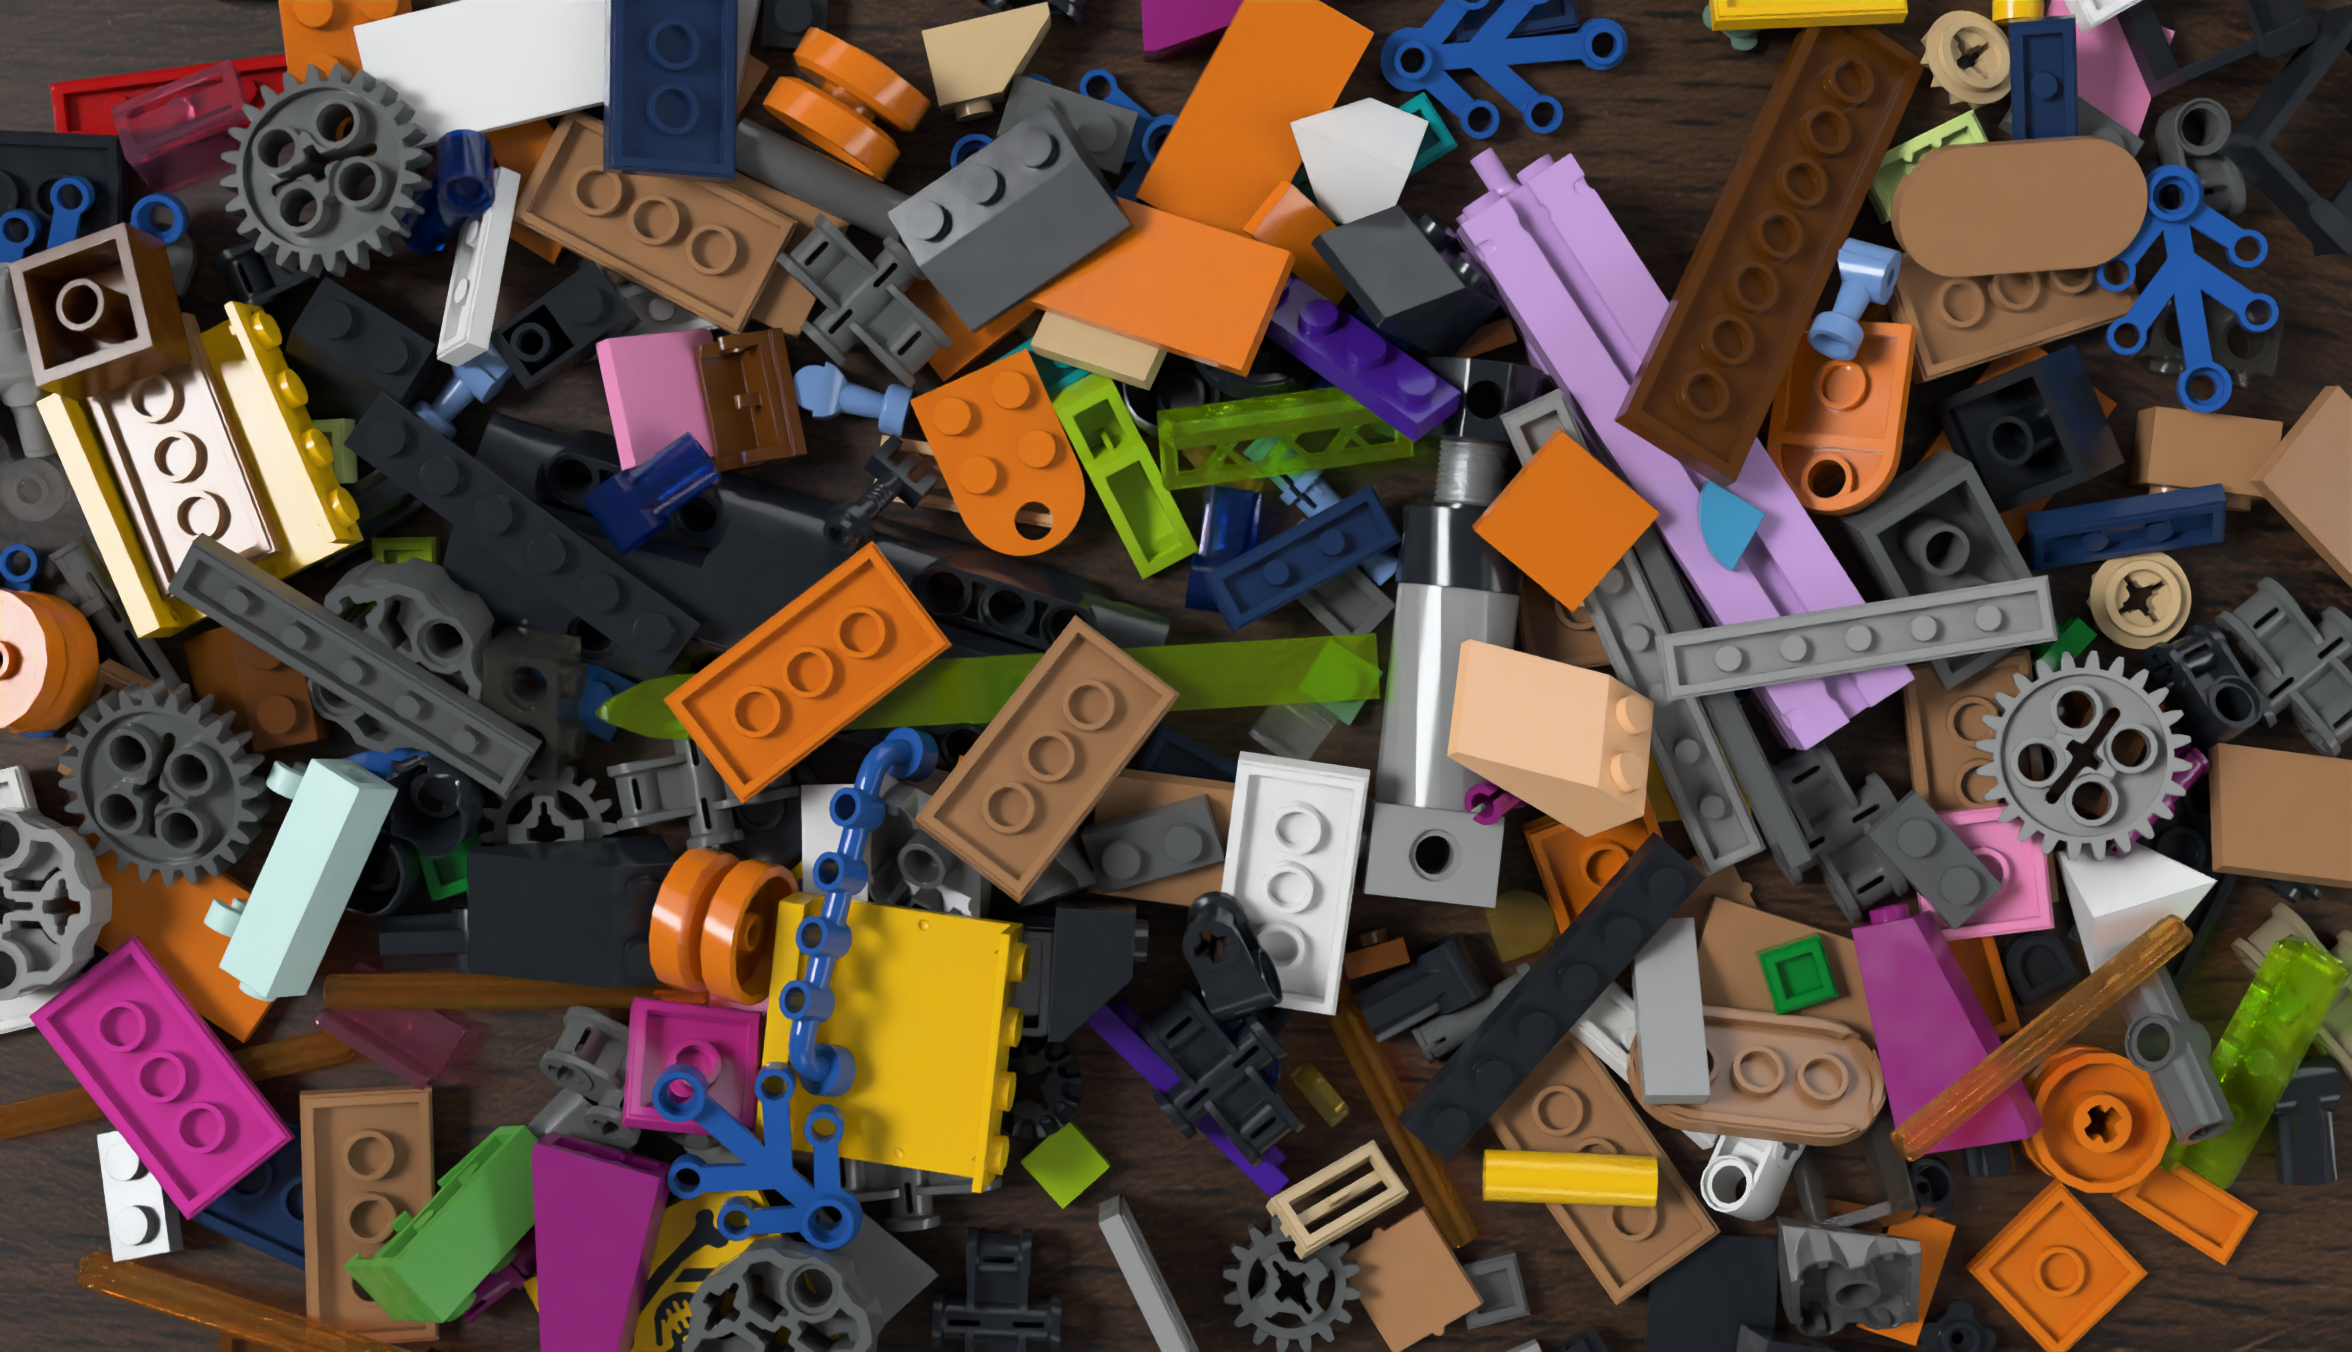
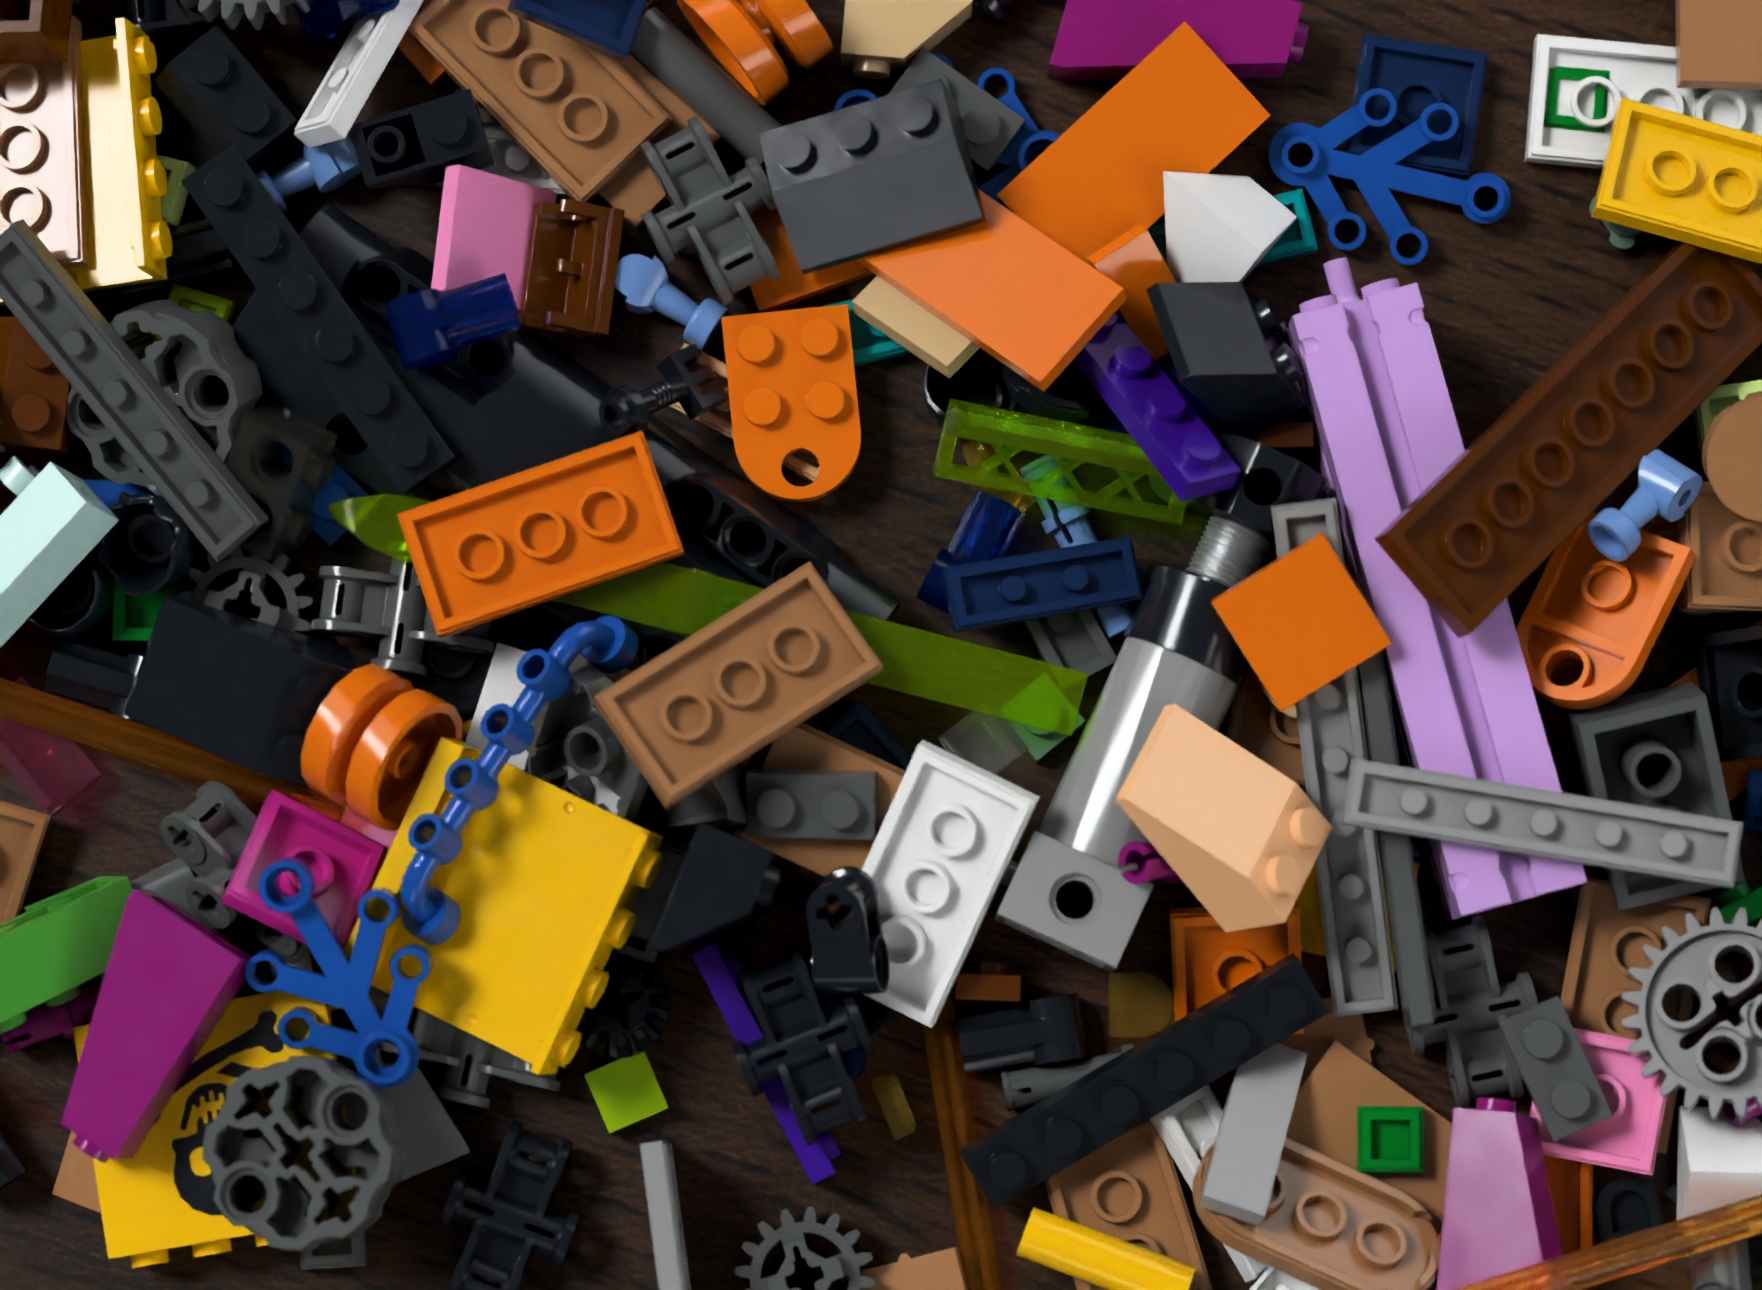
camera: 25 degrees right, 5 degrees down
(1123, 473) = (900, 453): lime slope -> none
(1295, 1225) = (857, 1236): tan tile -> none
(1726, 524) = (1452, 674): dark azure tile -> none

